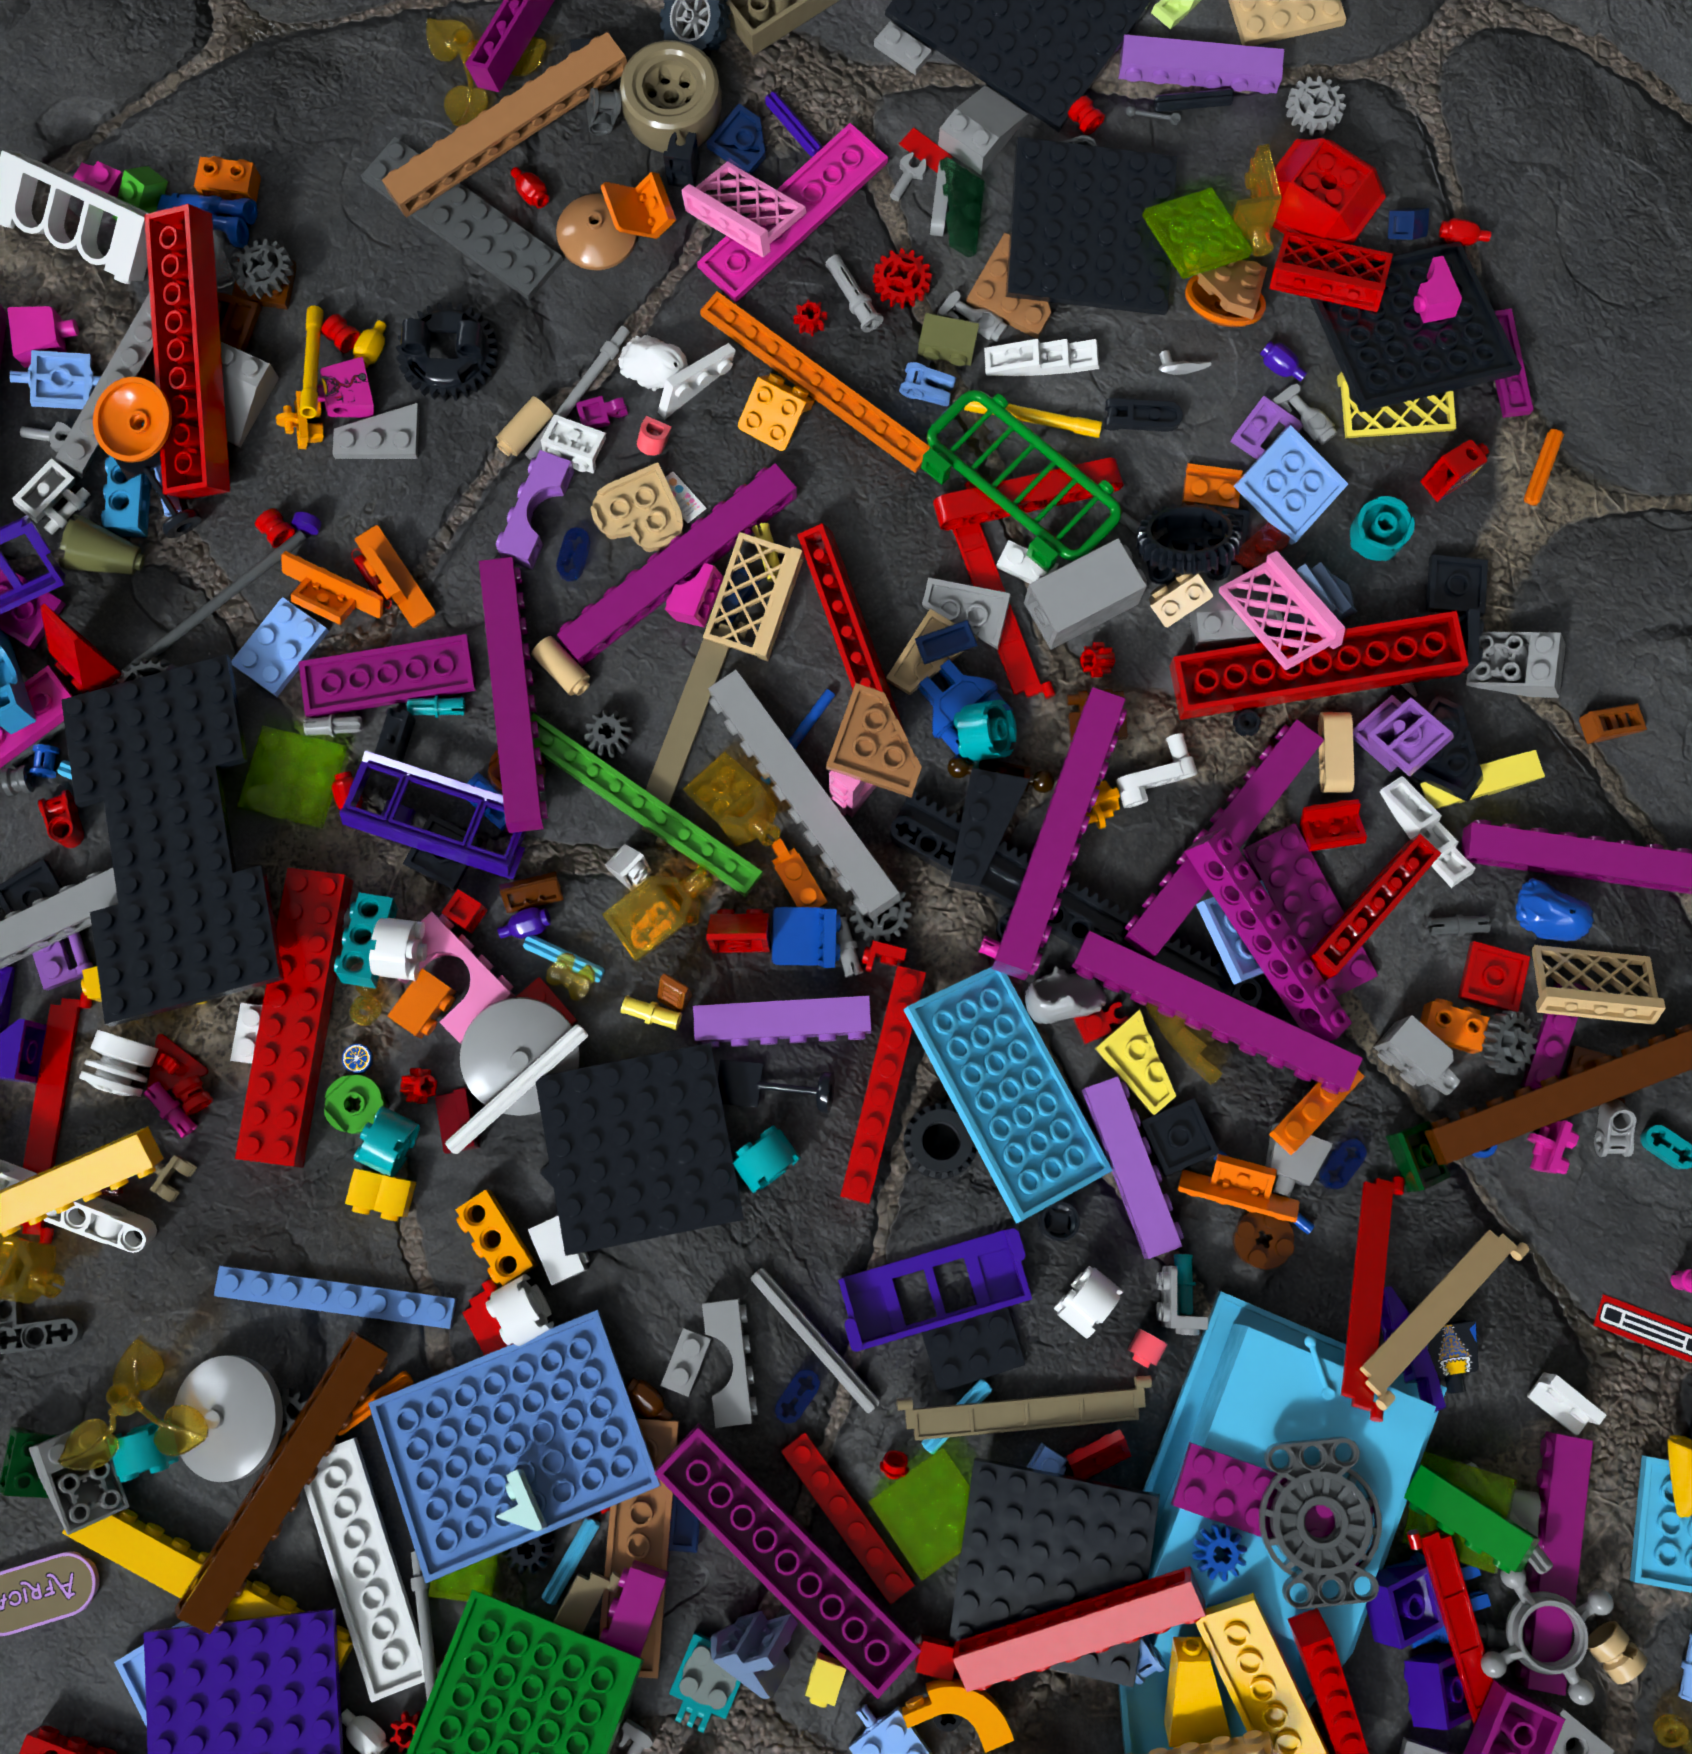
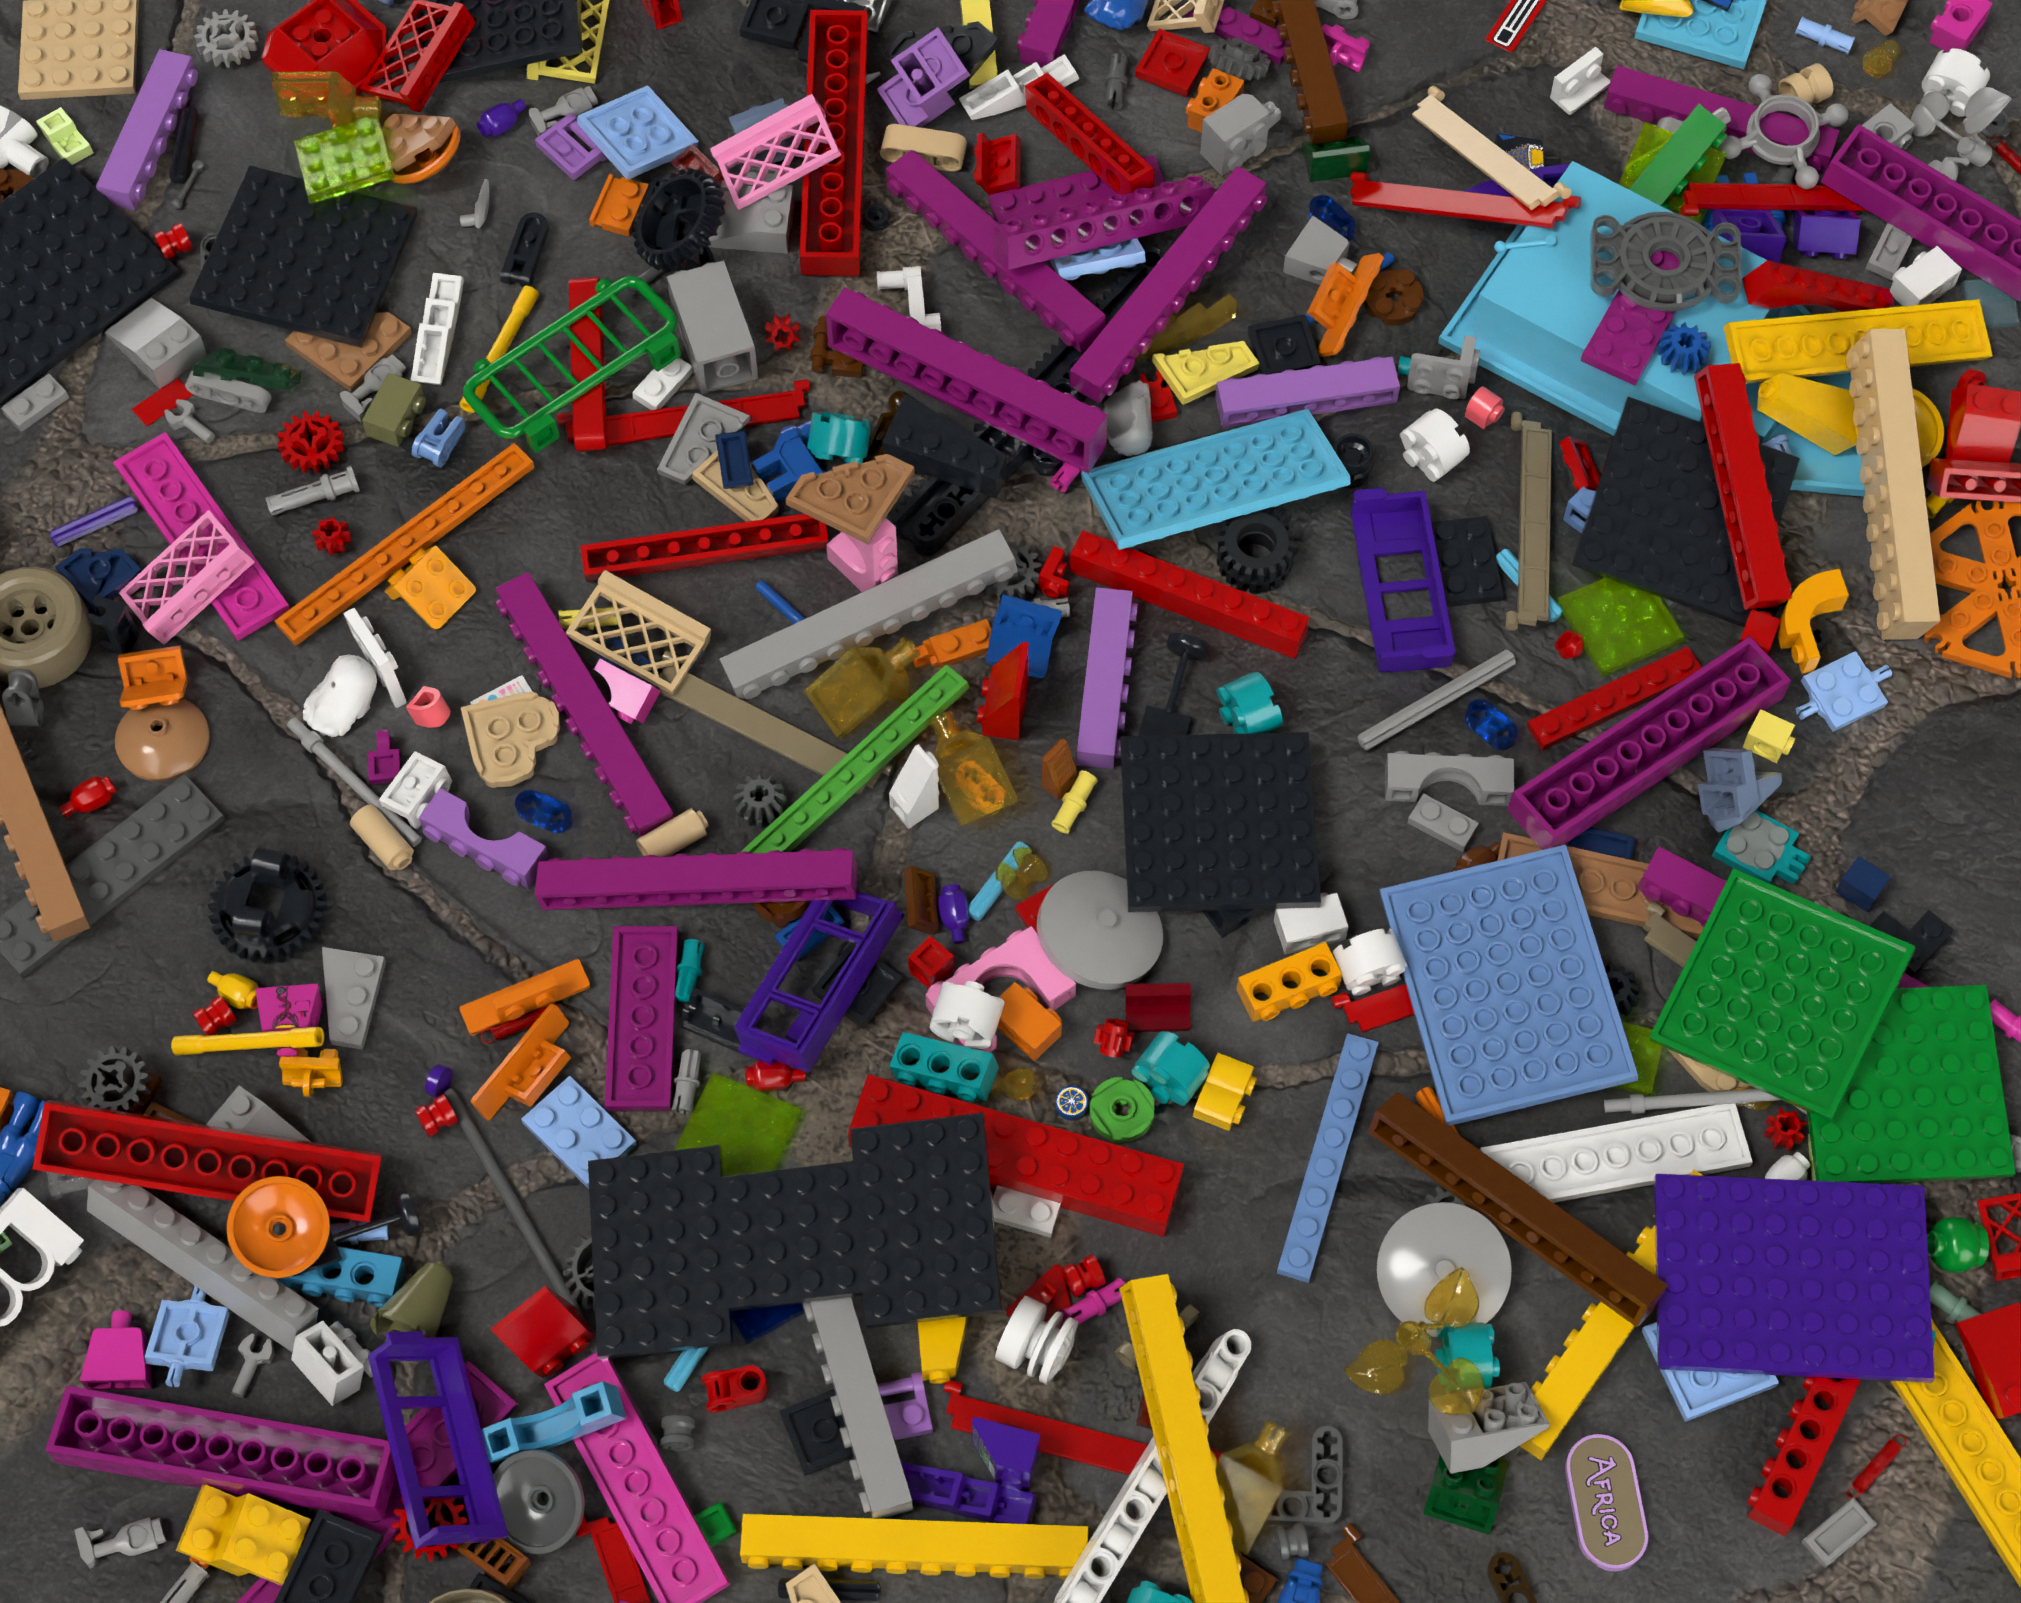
camera: 80 degrees left, 15 degrees down
(44, 761) = (660, 1401): blue bush -> none
(516, 1089) = (1138, 927): white axle -> none
(527, 1511) = (1573, 962): light aqua slope -> none
(570, 1560) = (1631, 958): medium azure axle -> none
(1179, 597) = (736, 244): tan bracket -> none
(1308, 1115) = (1283, 232): orange plate -> none
(1383, 543) = (703, 64): teal brick -> none

